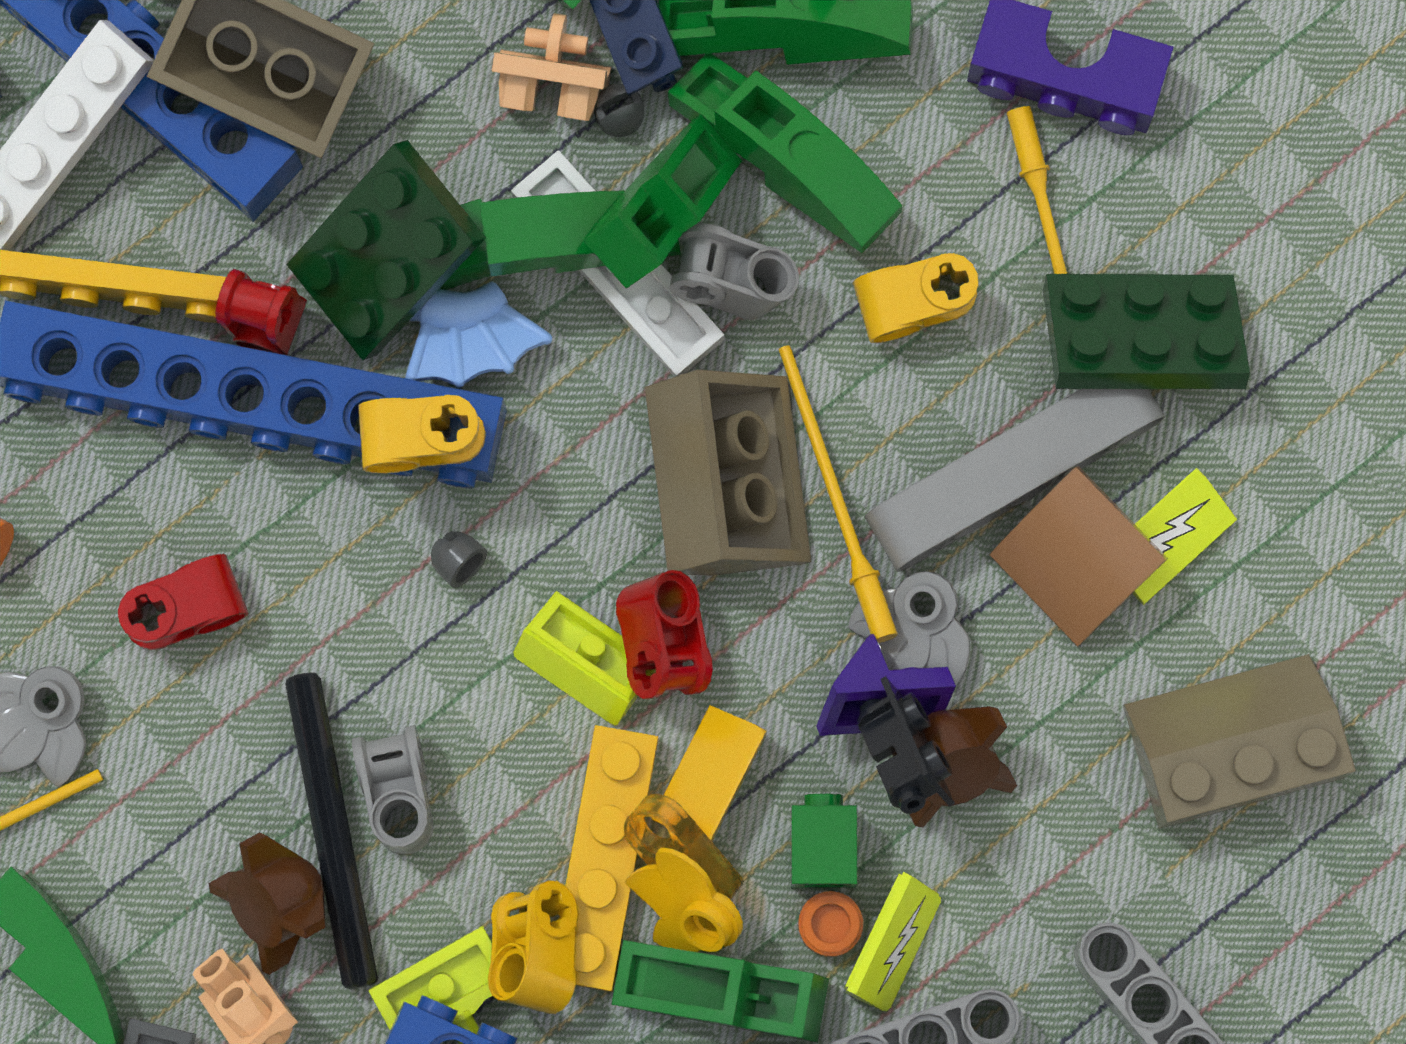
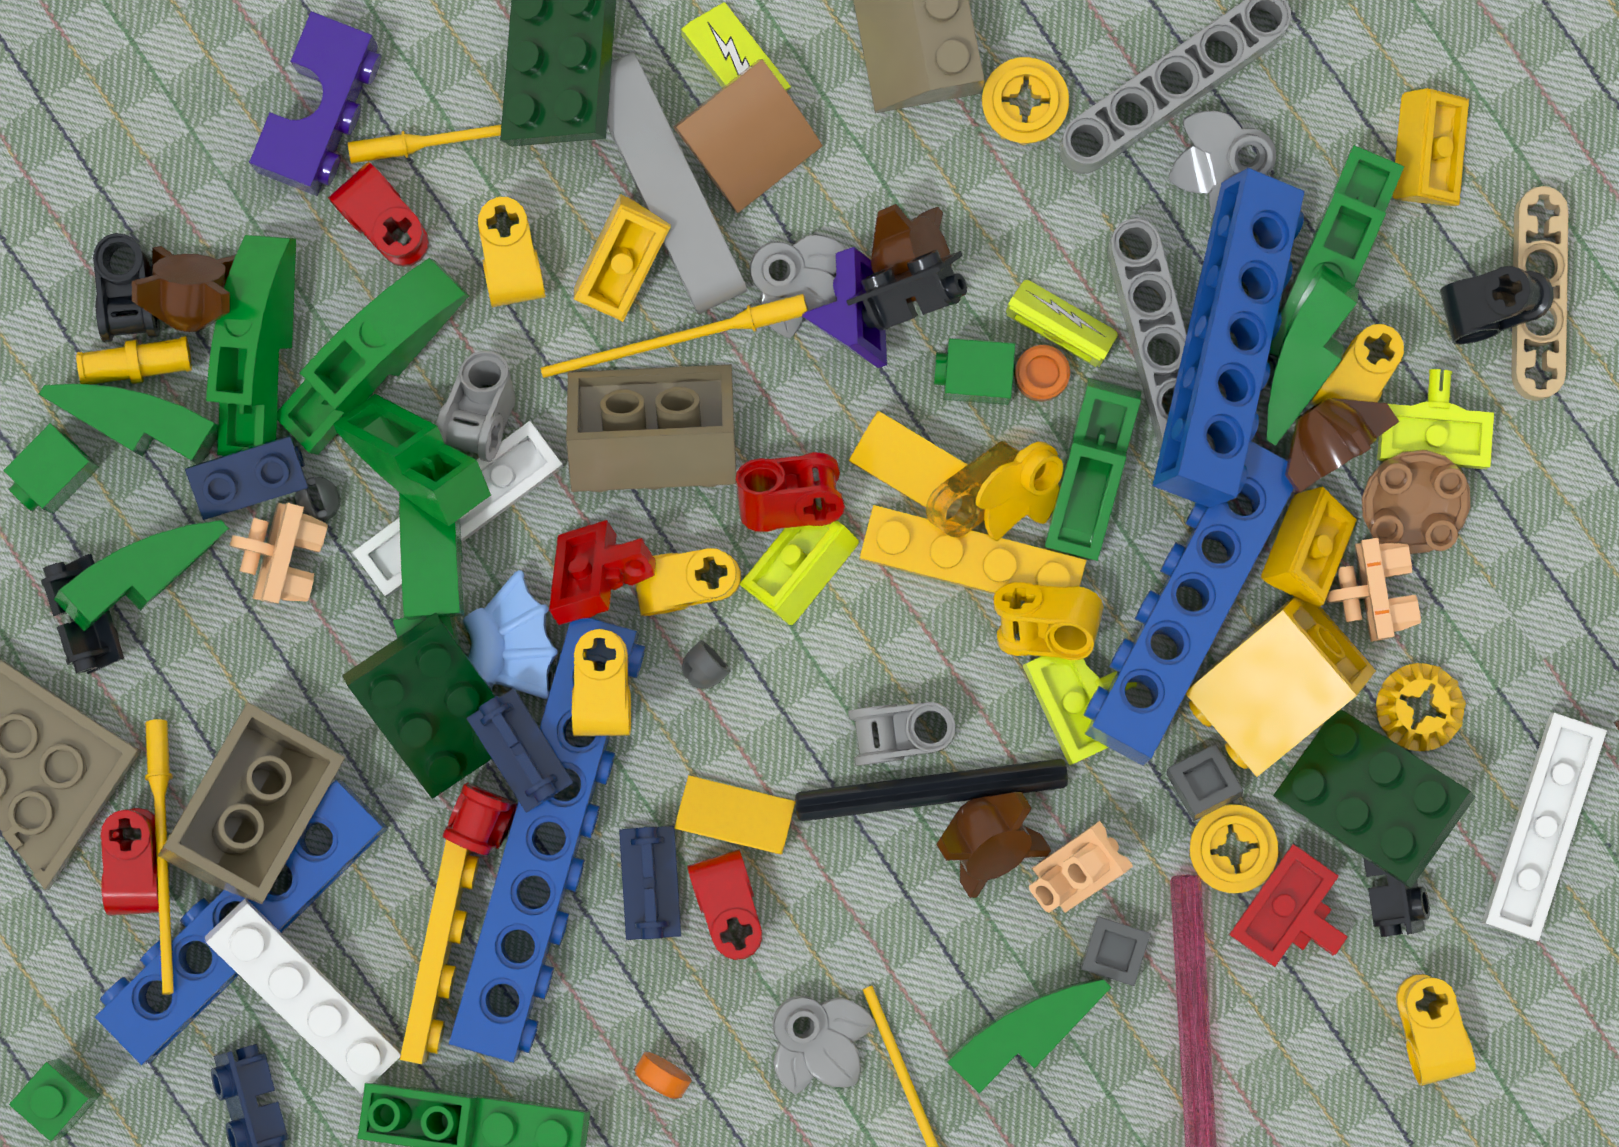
camera: 90 degrees left, 5 degrees up
(204, 516) = (650, 882): none -> dark blue hinge
(287, 605) = (735, 815): none -> yellow slope
(339, 349) = (519, 750): none -> dark blue hinge
(552, 520) = (679, 581): none -> yellow piece
(557, 414) = (590, 566): none -> red hinge
(920, 421) = (620, 258): none -> yellow slope
(951, 143) = (377, 211): none -> red piece
(1173, 857) = (1044, 84): none -> yellow gear

